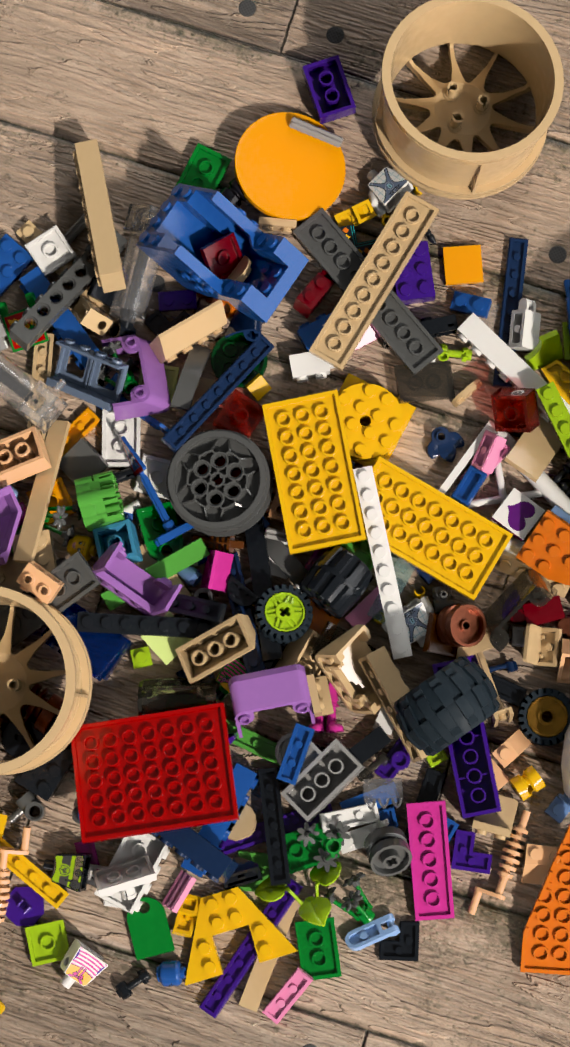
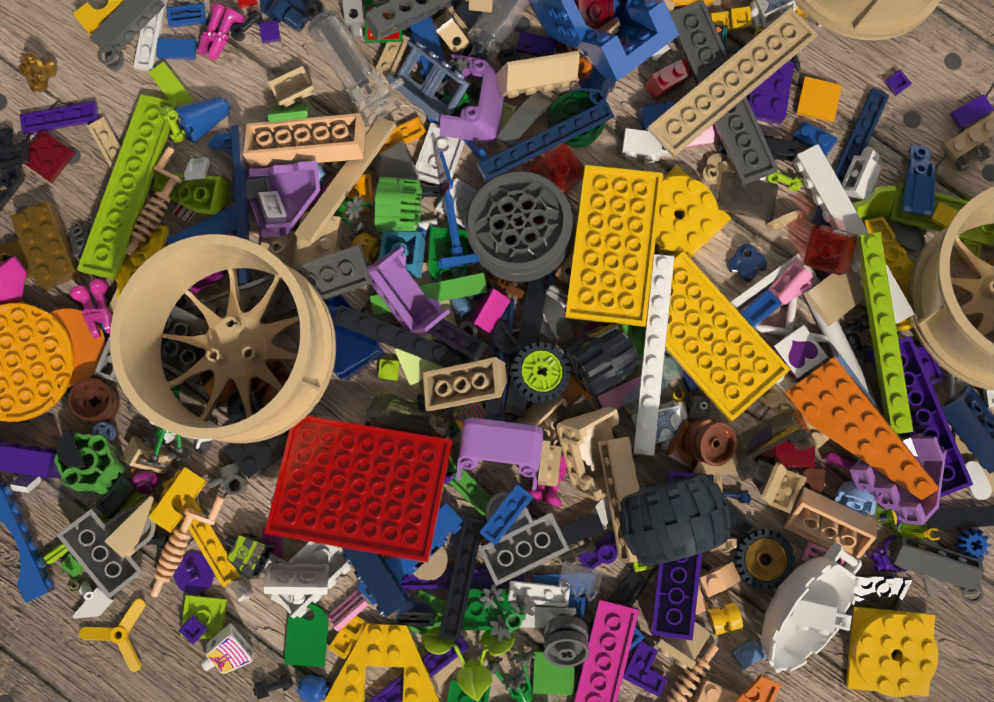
camera: 15 degrees right, 0 degrees up
(39, 582) = (311, 262): light nougat brick -> none
(43, 956) = (193, 629): none -> dark purple tile
(74, 905) = (241, 590): none -> white tile
(258, 387) = (586, 150): yellow tile -> none
(386, 362) = (716, 167): none -> tan plate
(386, 889) = (551, 678): none -> bright green tile
(532, 224) = (897, 82): none -> dark purple tile

